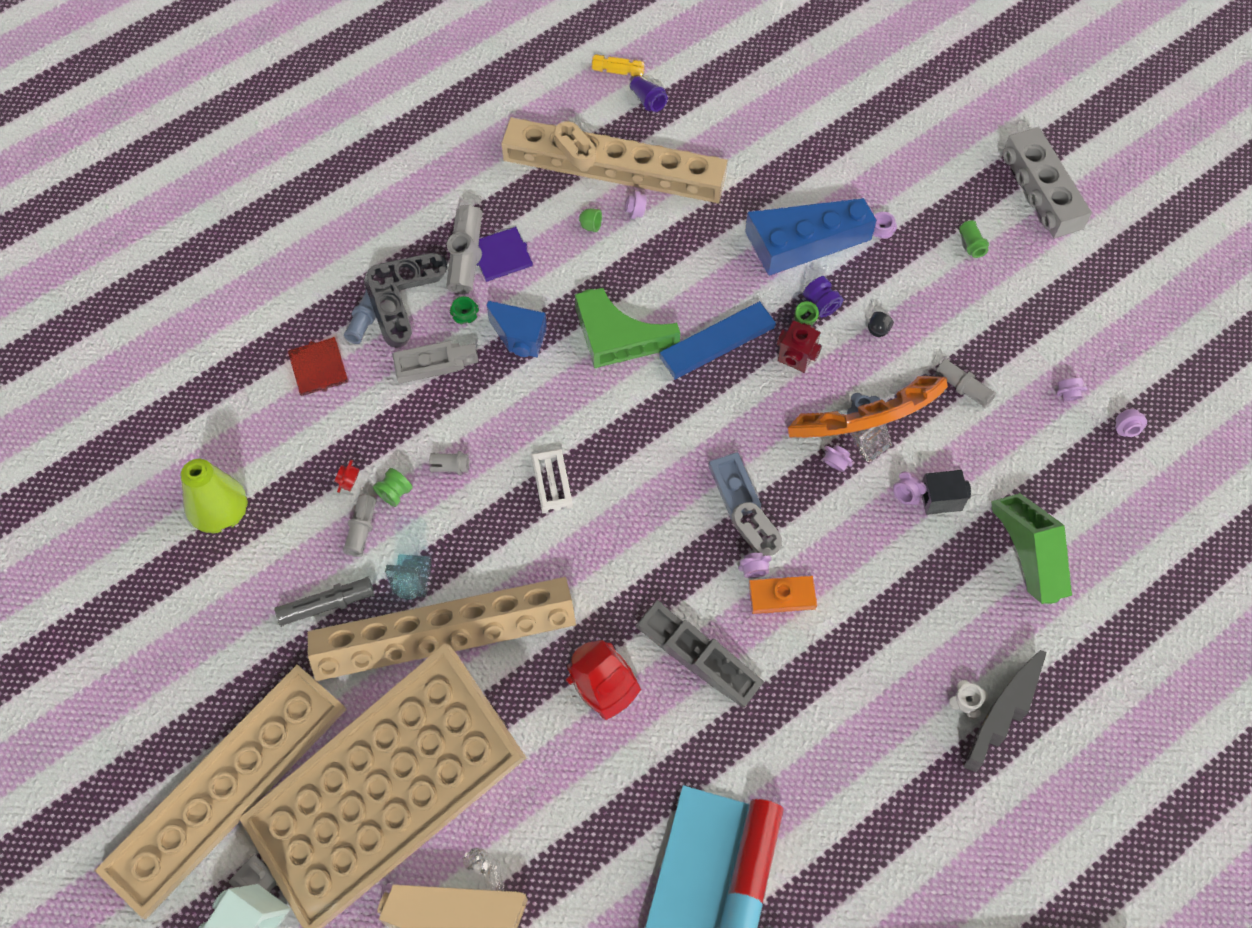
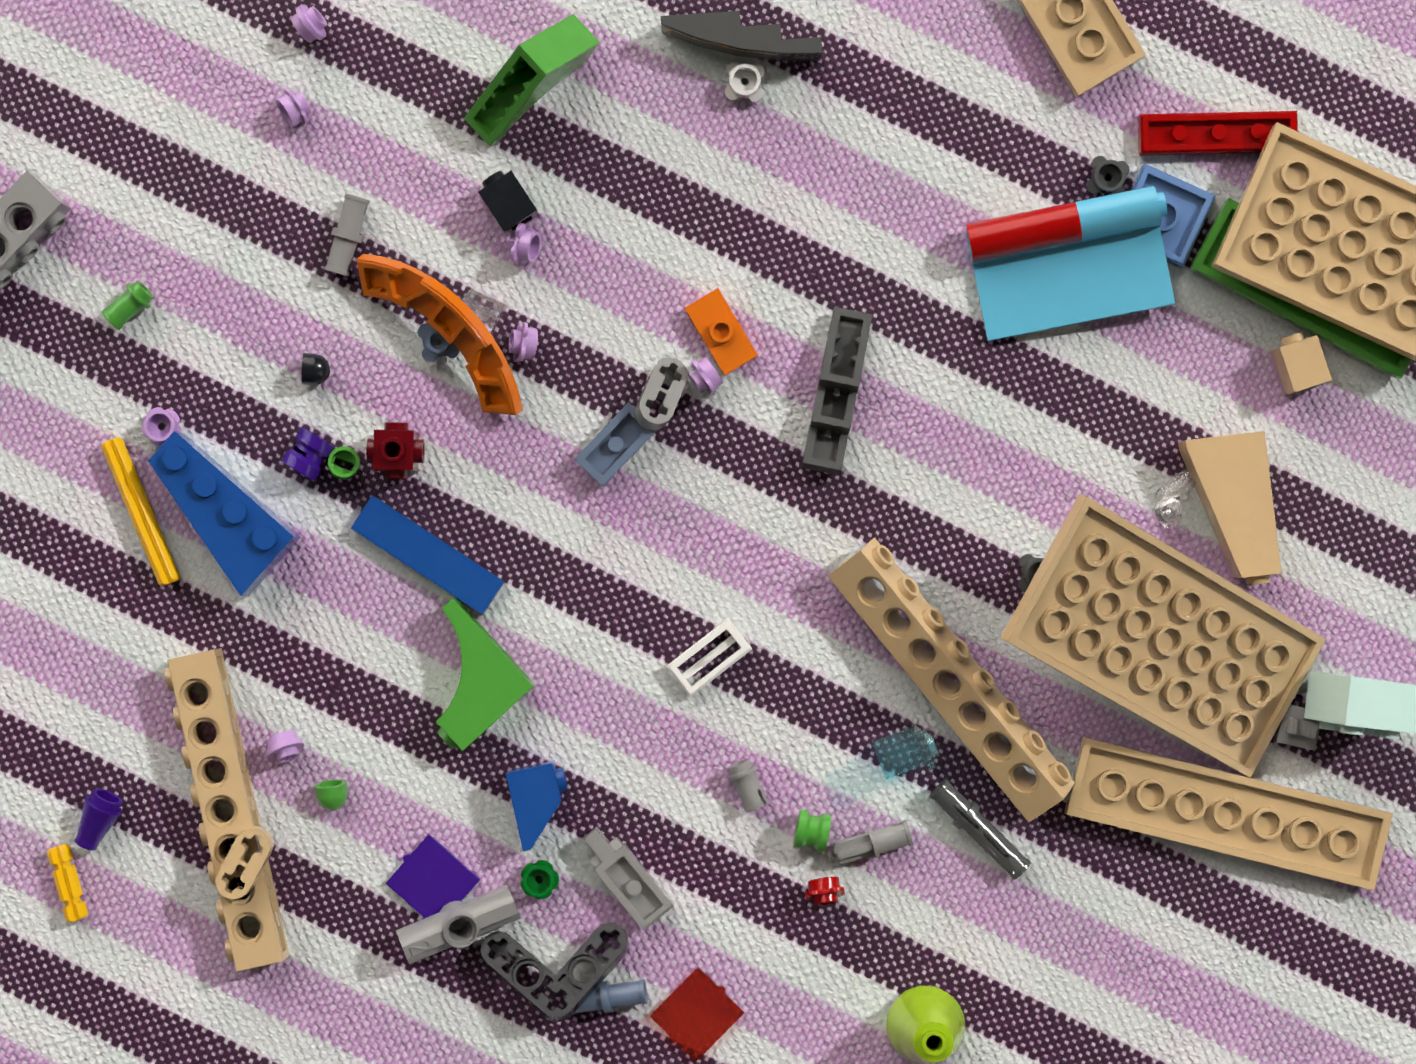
camera: 120 degrees left, 25 degrees up
(602, 678) = (916, 480): red helmet -> none
(830, 192) = (140, 511): none -> yellow axle

